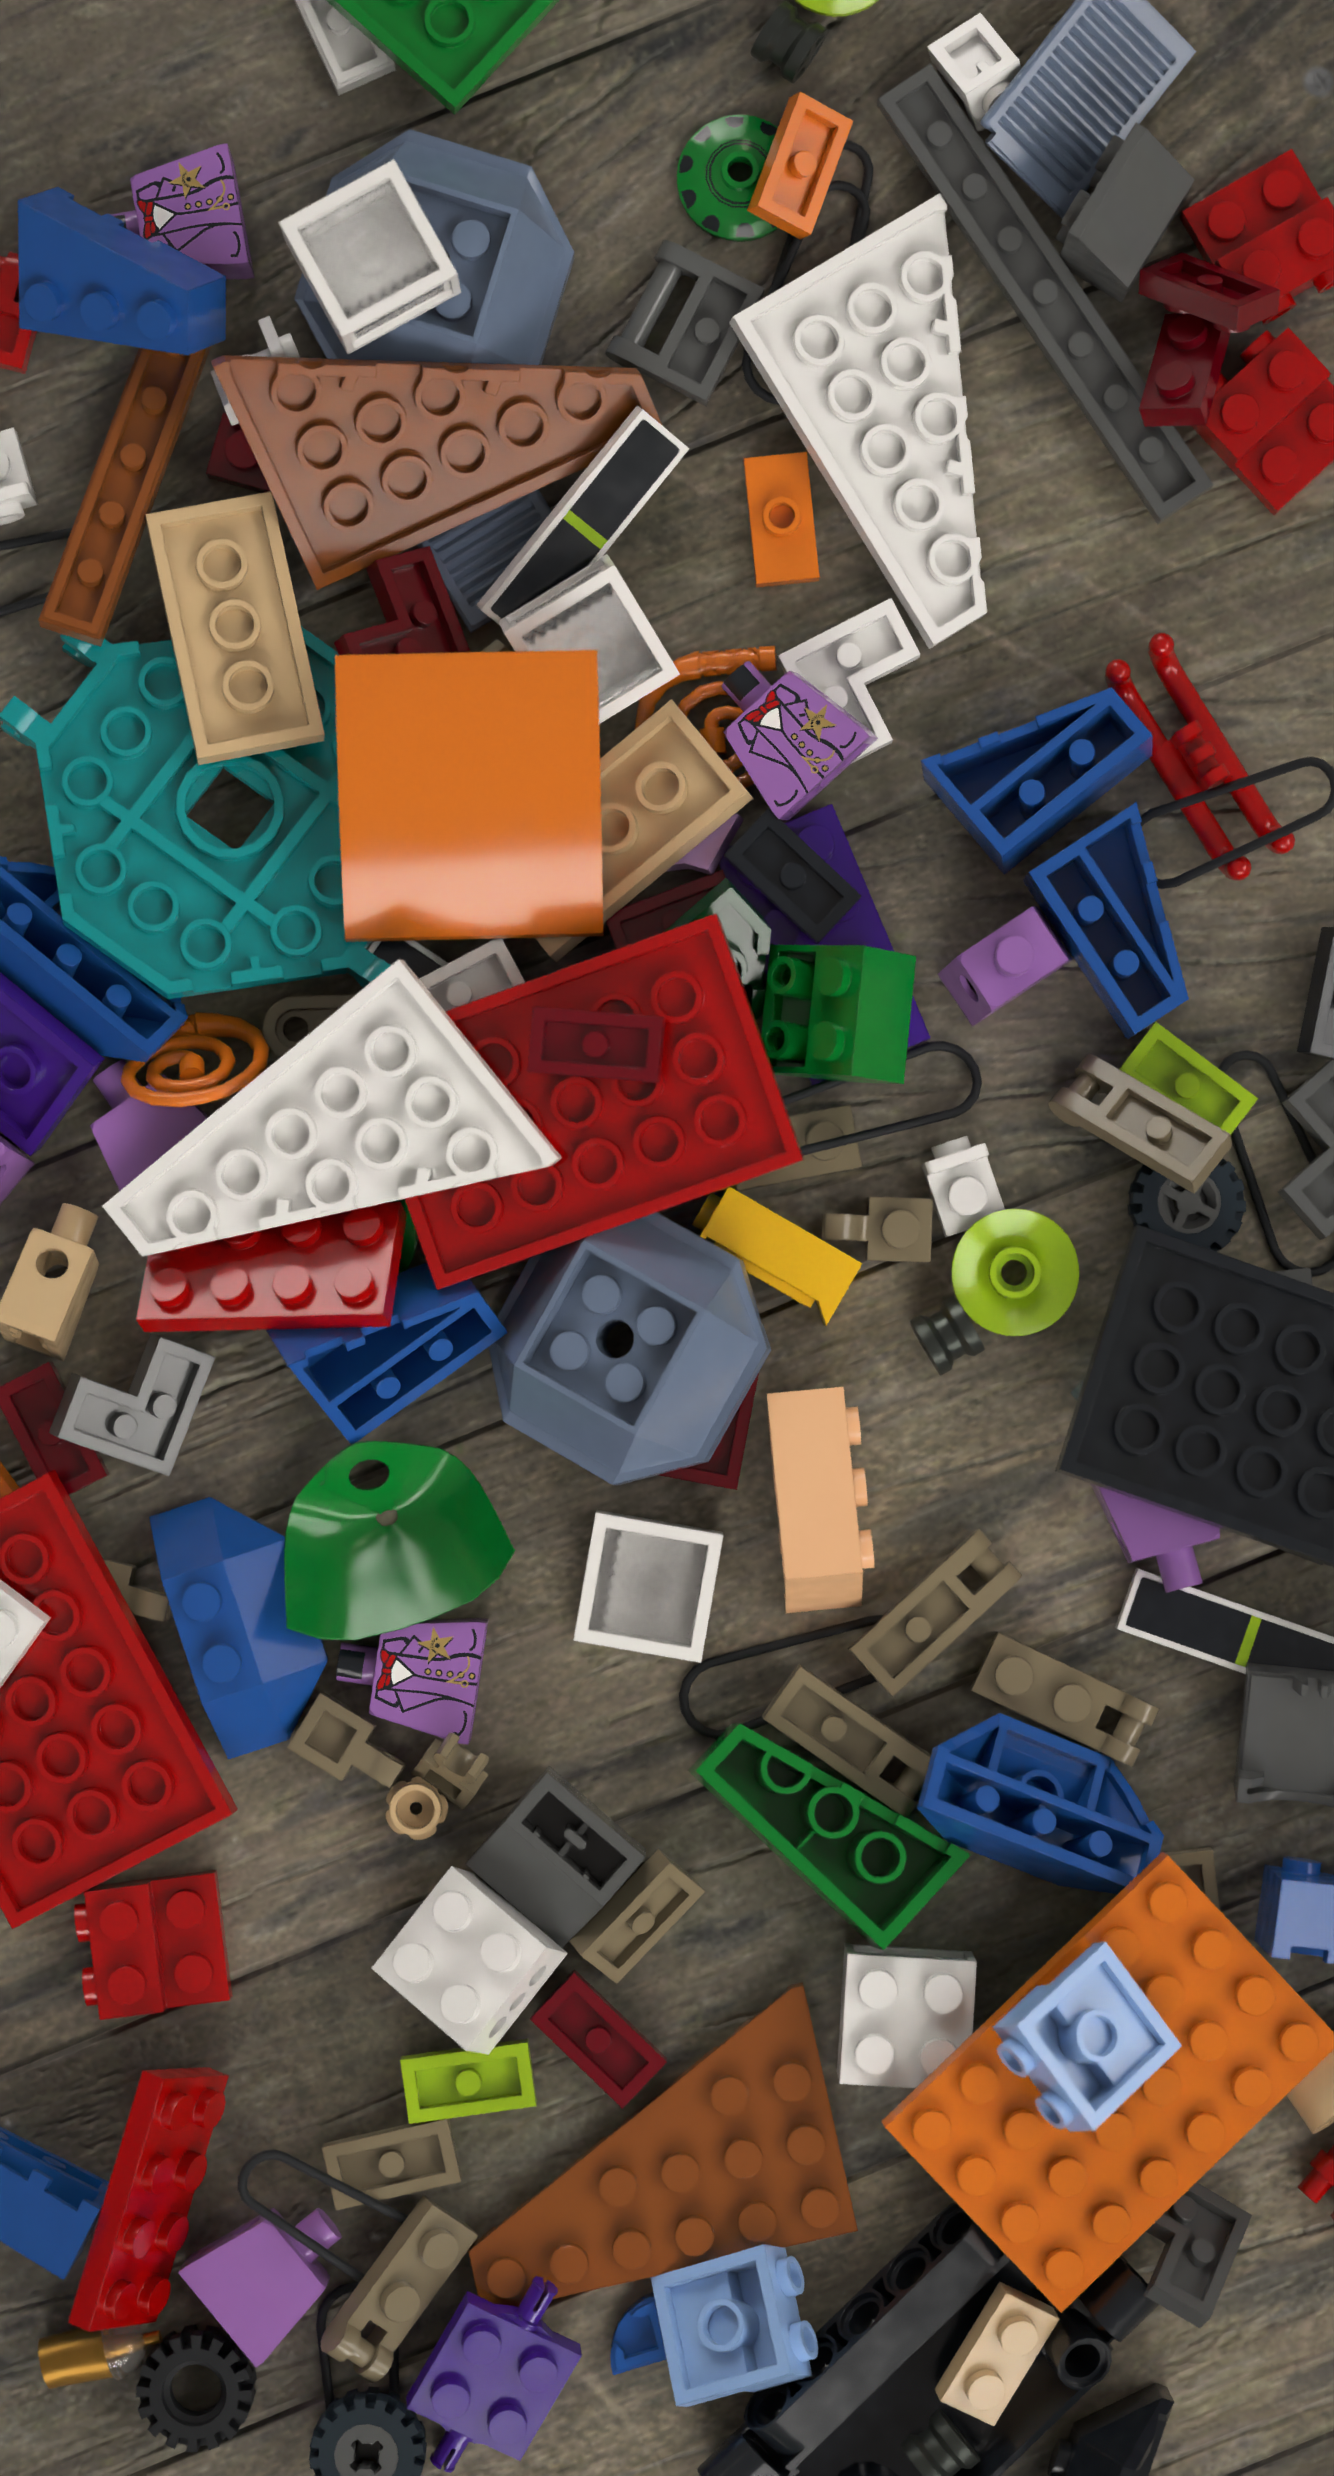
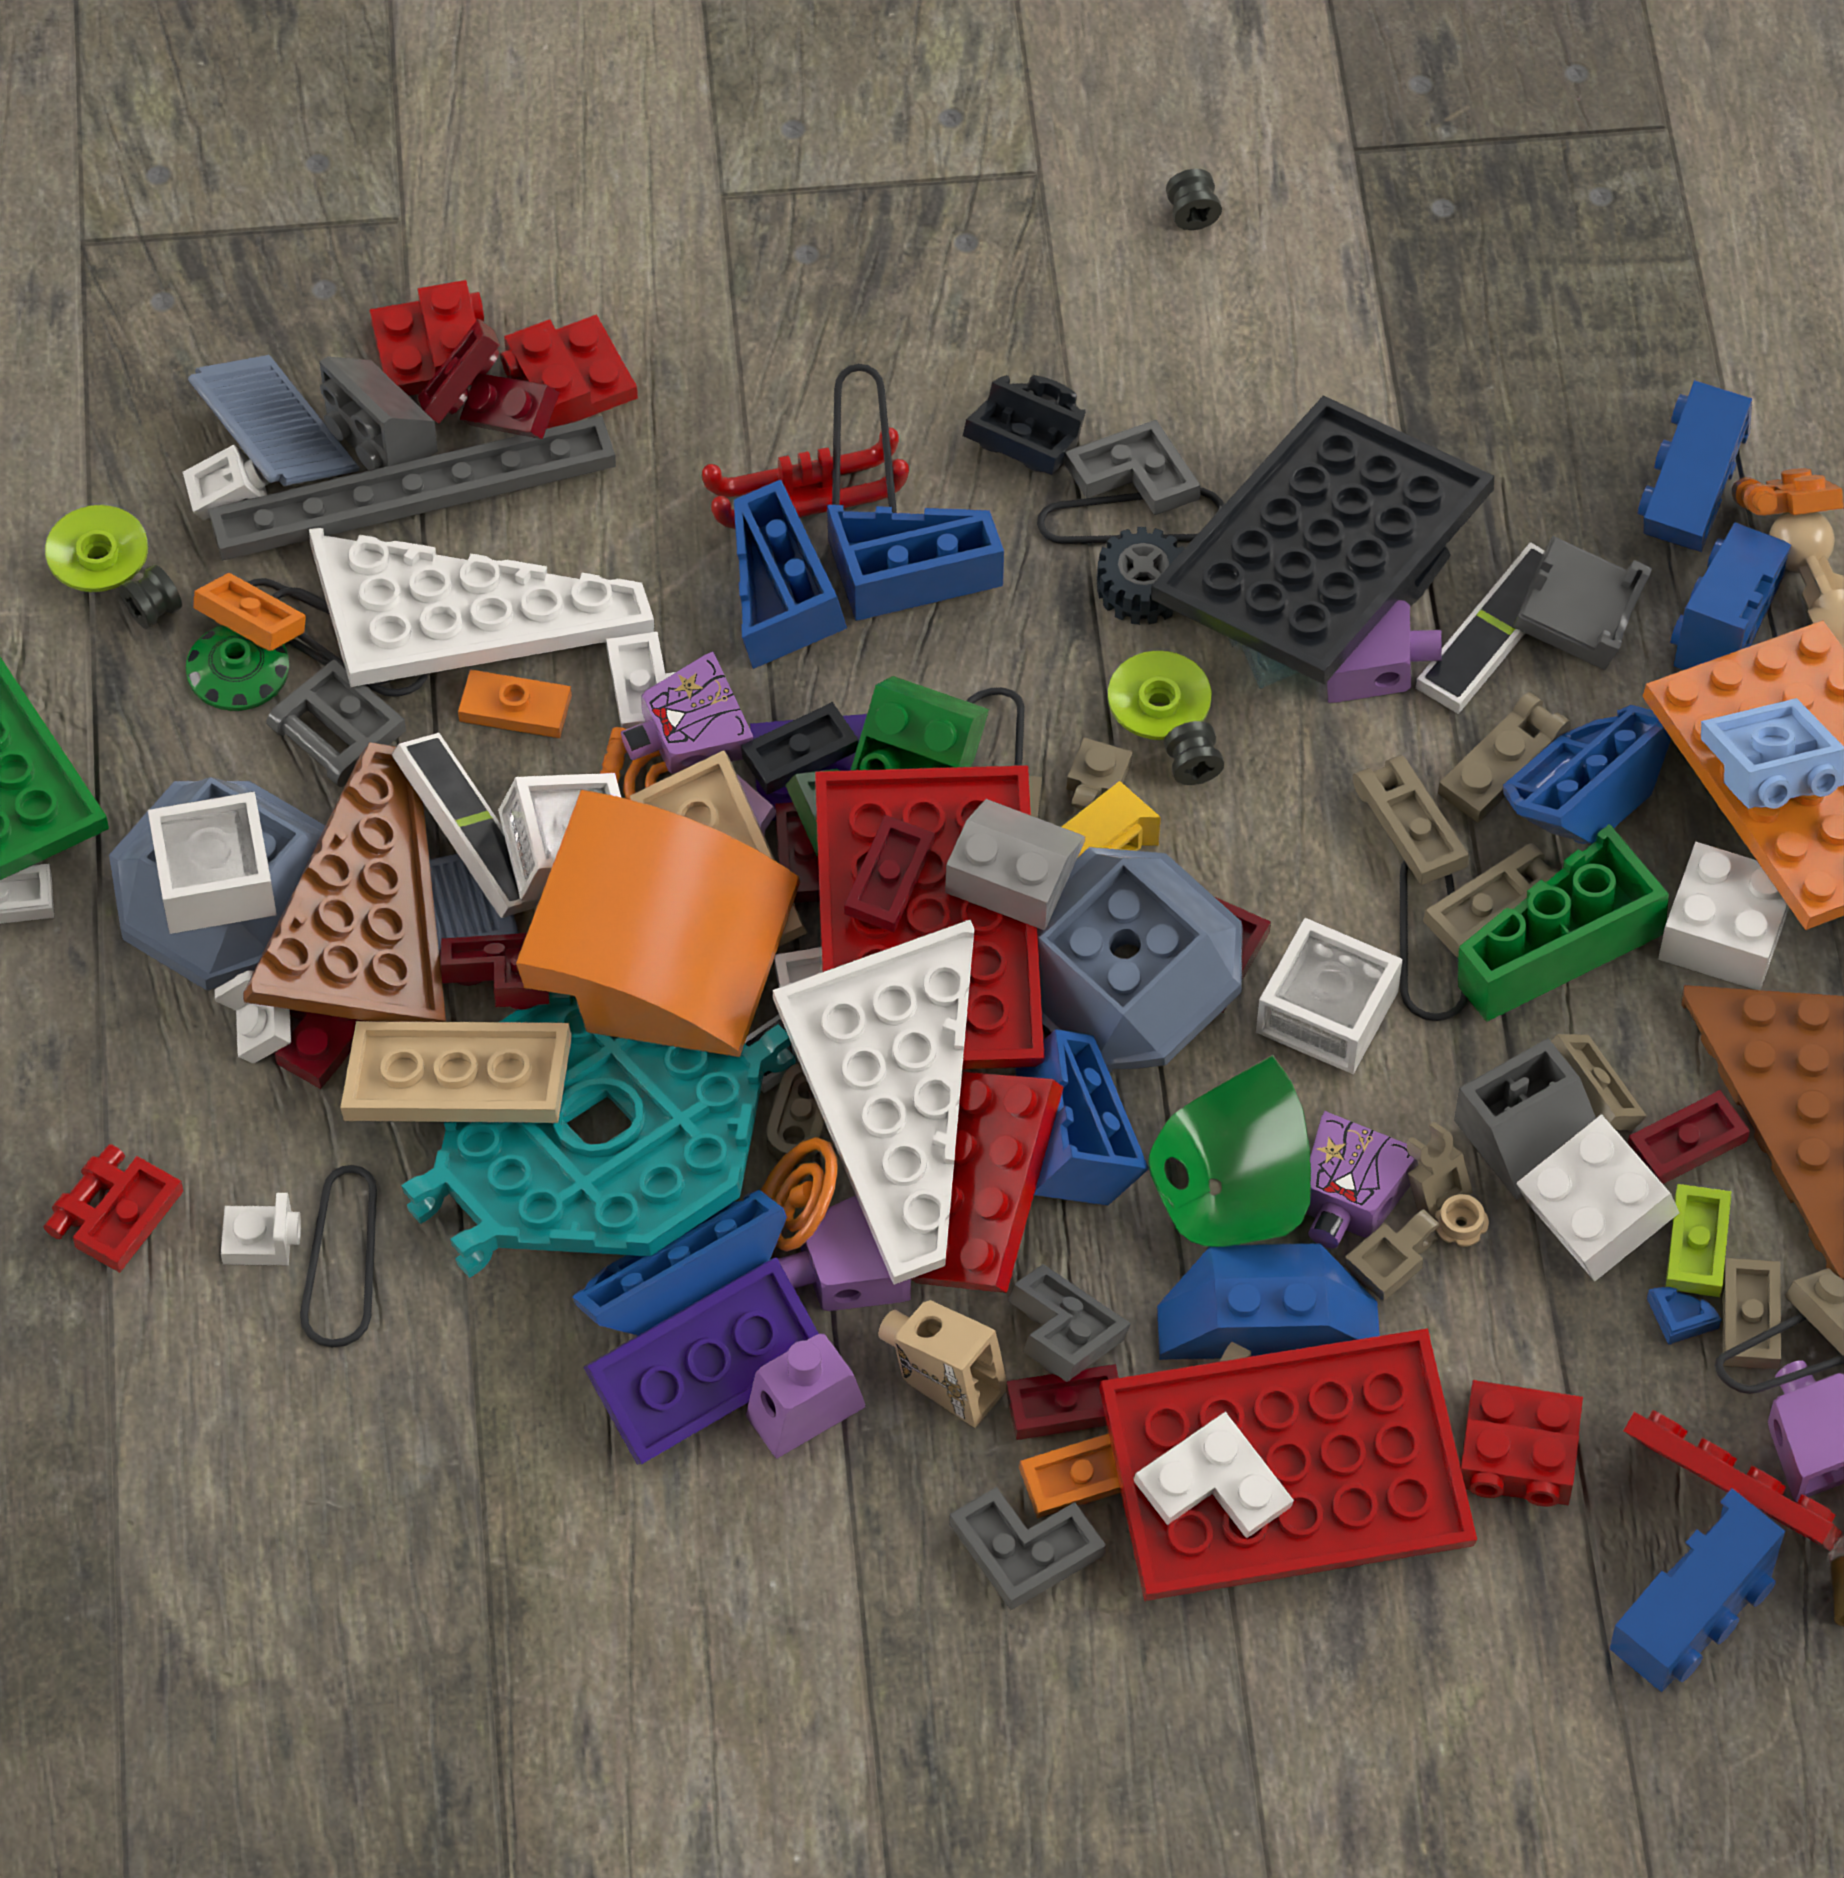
camera: 75 degrees left, 30 degrees down
(110, 285) = (147, 1077): blue wedge -> none
(121, 494) = (291, 1119): dark orange tile -> none
(195, 210) = (113, 1033): medium lavender torso -> none
(376, 2082) = (1681, 1314): none -> blue tile
(661, 1185) = (1012, 863): none -> light grey slope
(818, 1499) = (1298, 864): light nougat wedge -> none
(961, 1184) = (1077, 717): white bracket -> none
(1004, 965) = (911, 618): medium lavender torso -> none
(1142, 1123) = (1070, 576): dark tan plate -> none
(1188, 1079) = (1053, 550): lime plate -> none

